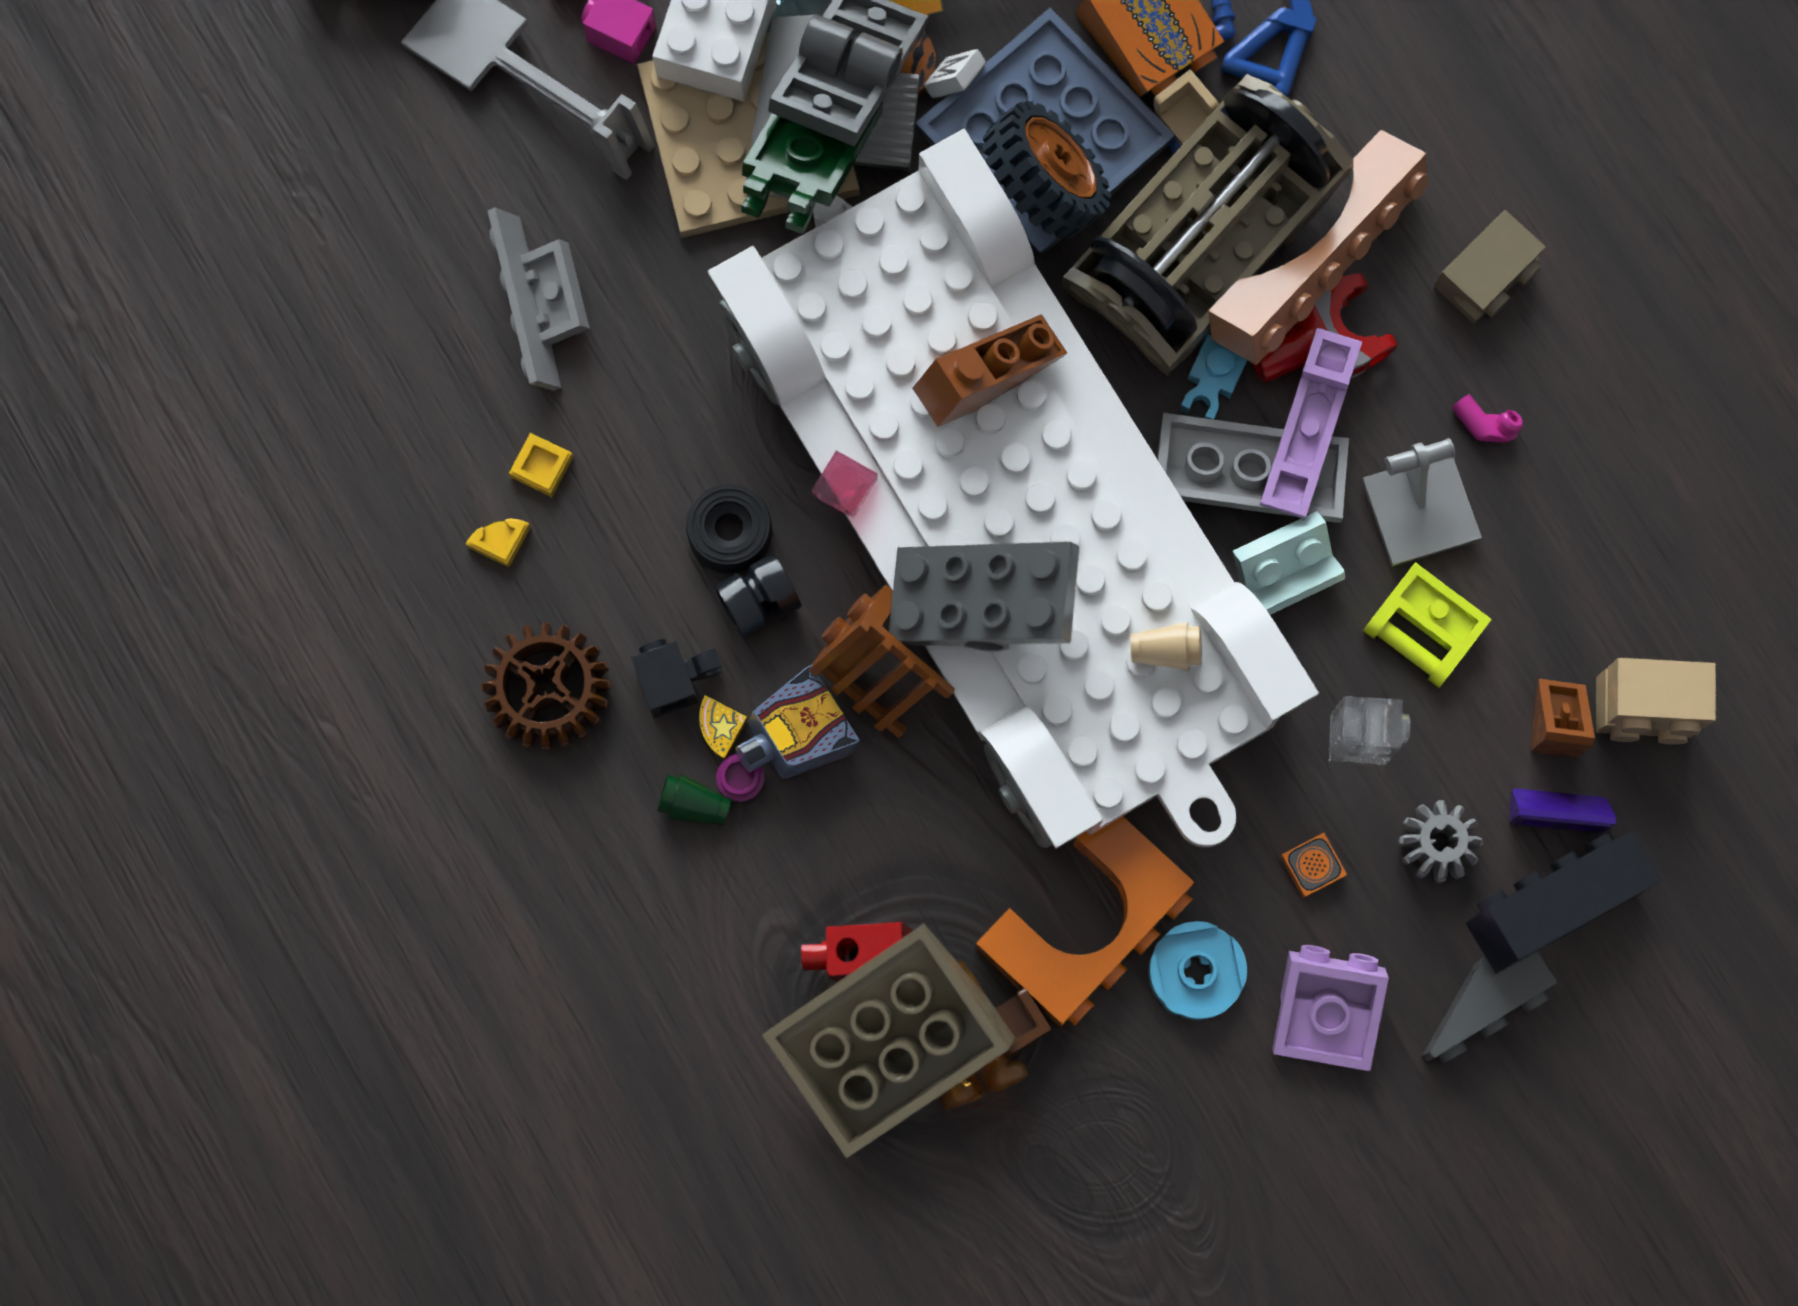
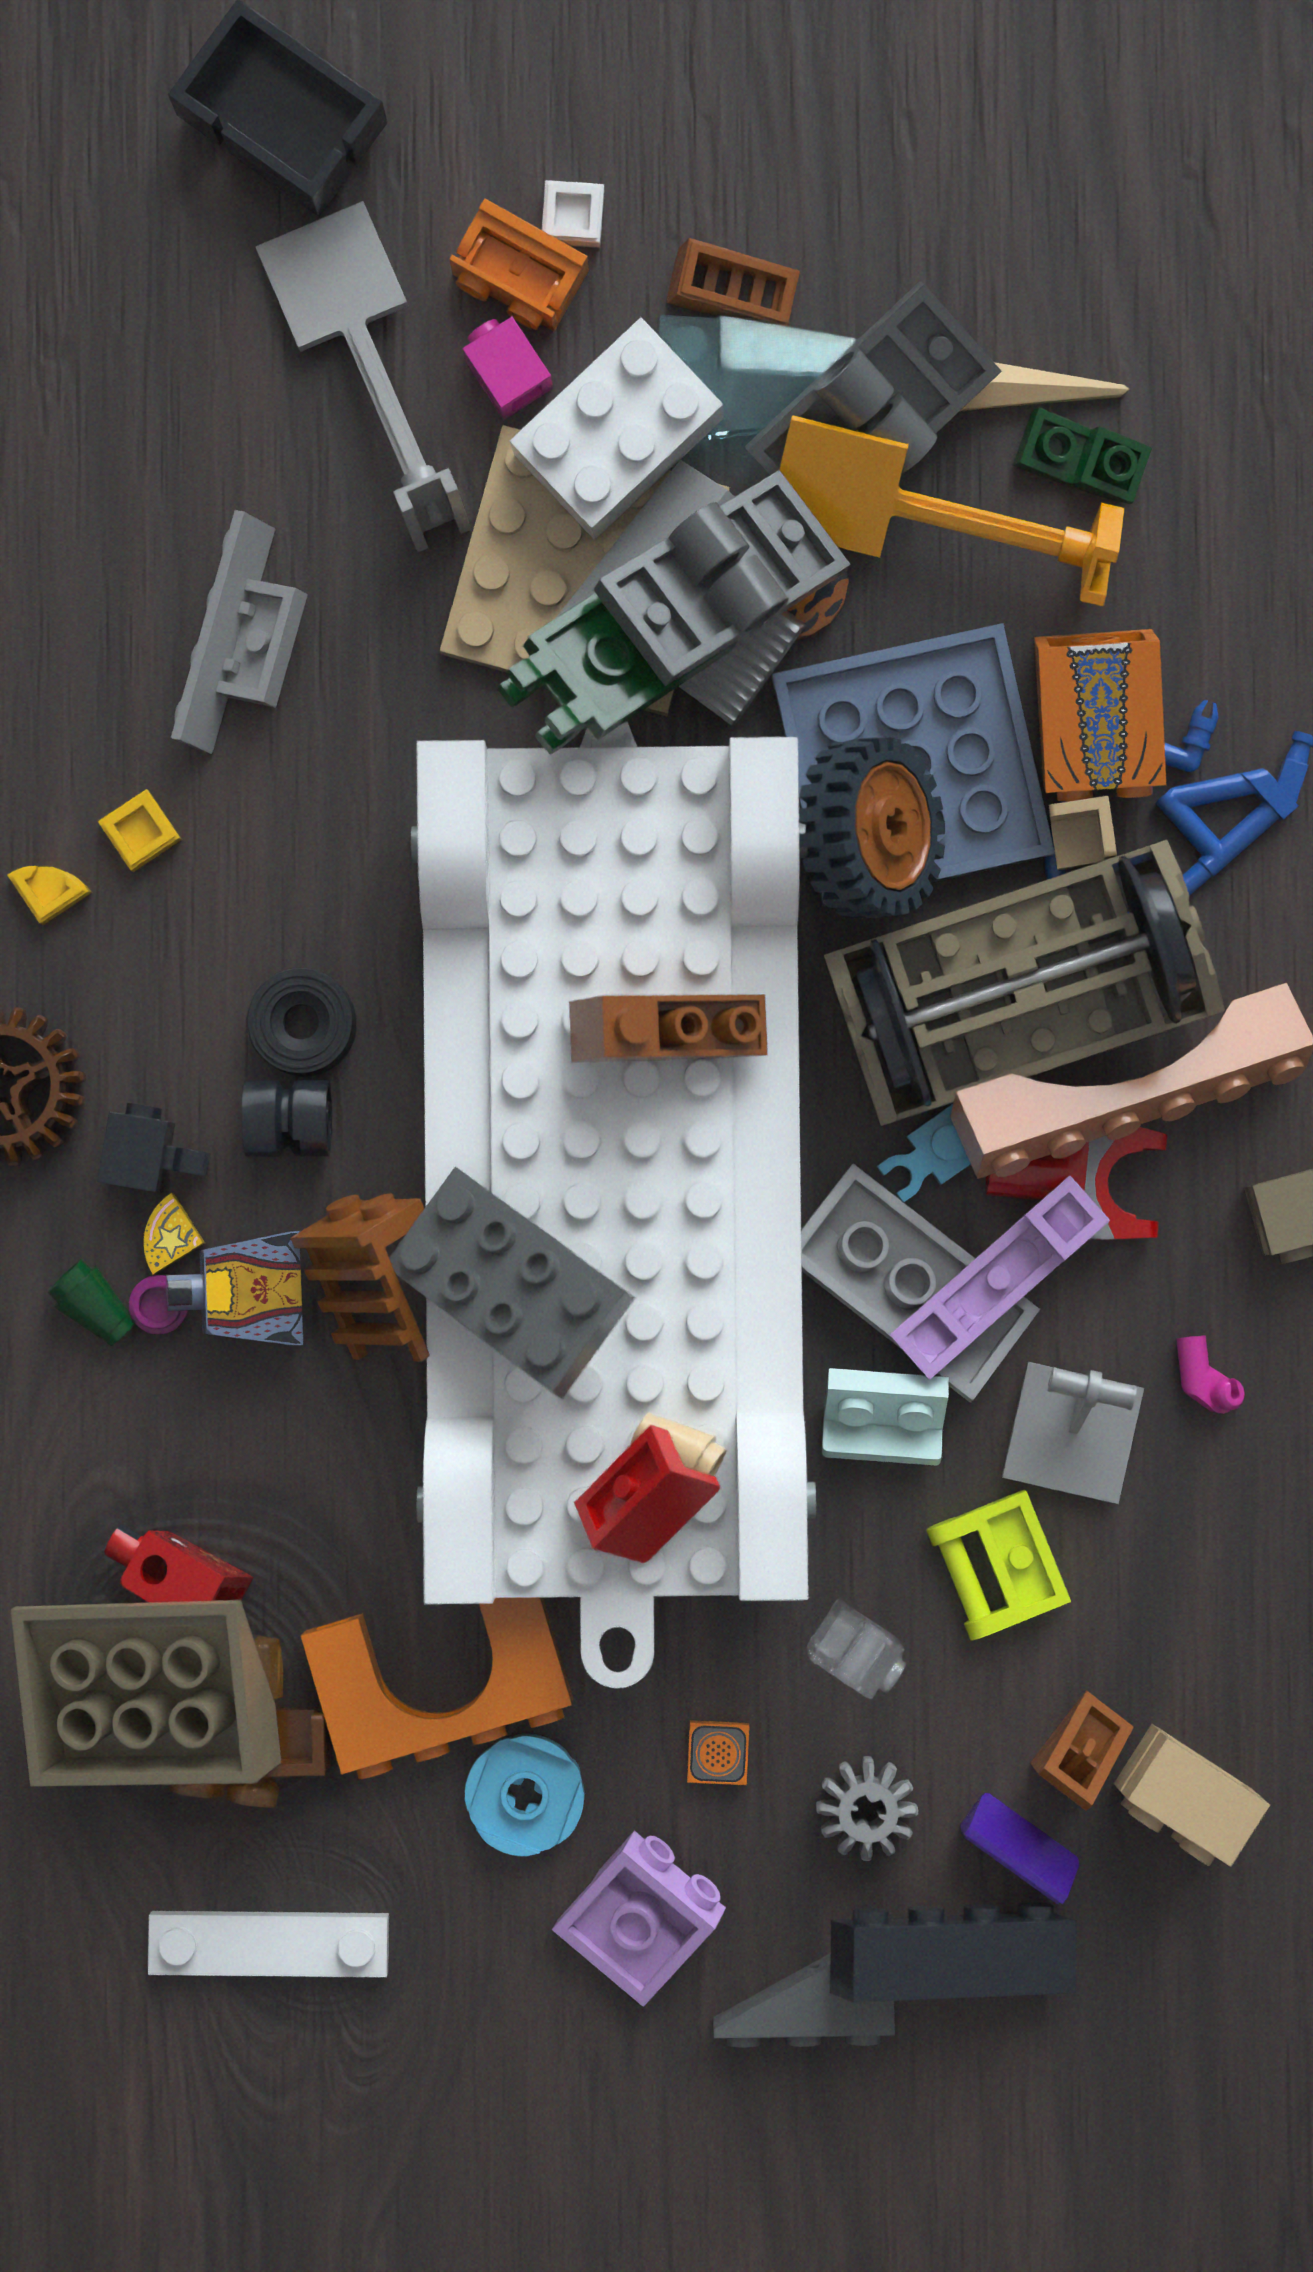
camera: 35 degrees right, 10 degrees up
(844, 484) = (439, 1060): clear pink plate -> none
(955, 73) = (850, 641): white tile -> none
(1079, 1184) = (268, 1944): none -> white plate
(1164, 688) = (643, 1498): none -> red panel

